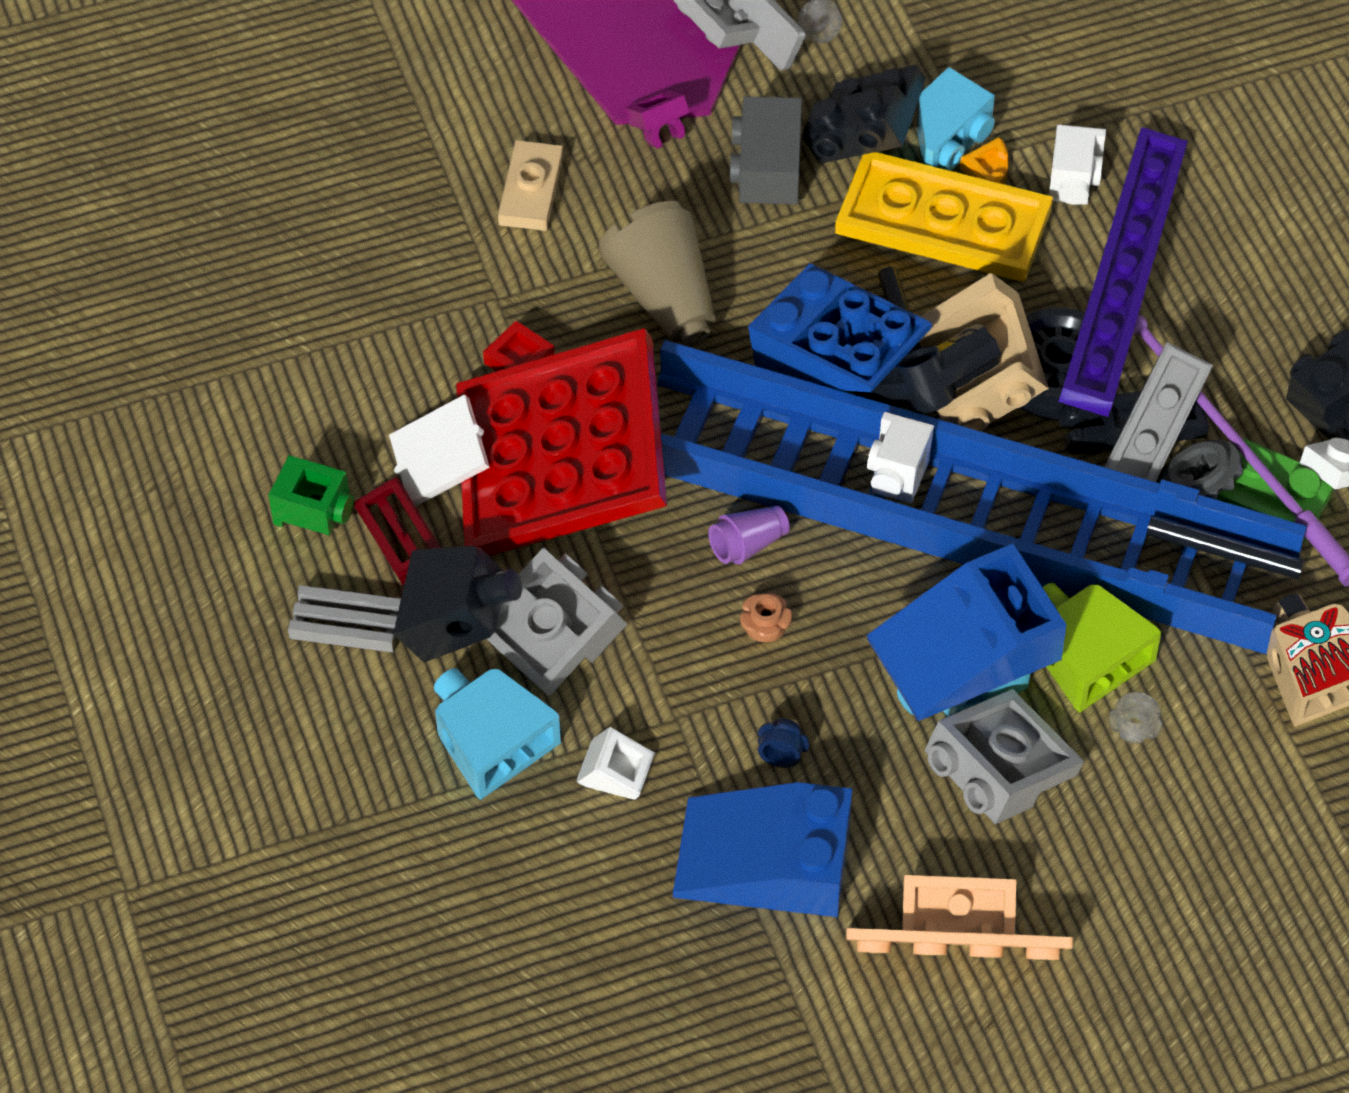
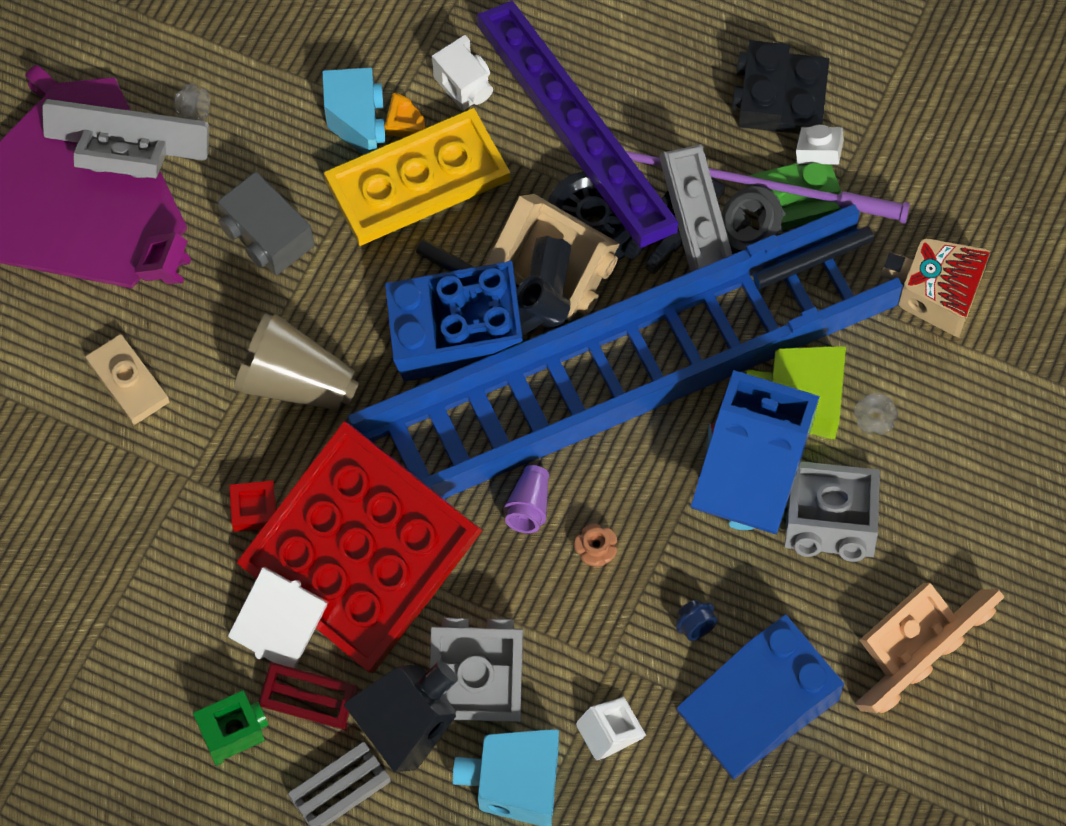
camera: 45 degrees left, 10 degrees up
(864, 114) = (301, 147): black plate -> none
(900, 457) = (573, 367): white brick -> none

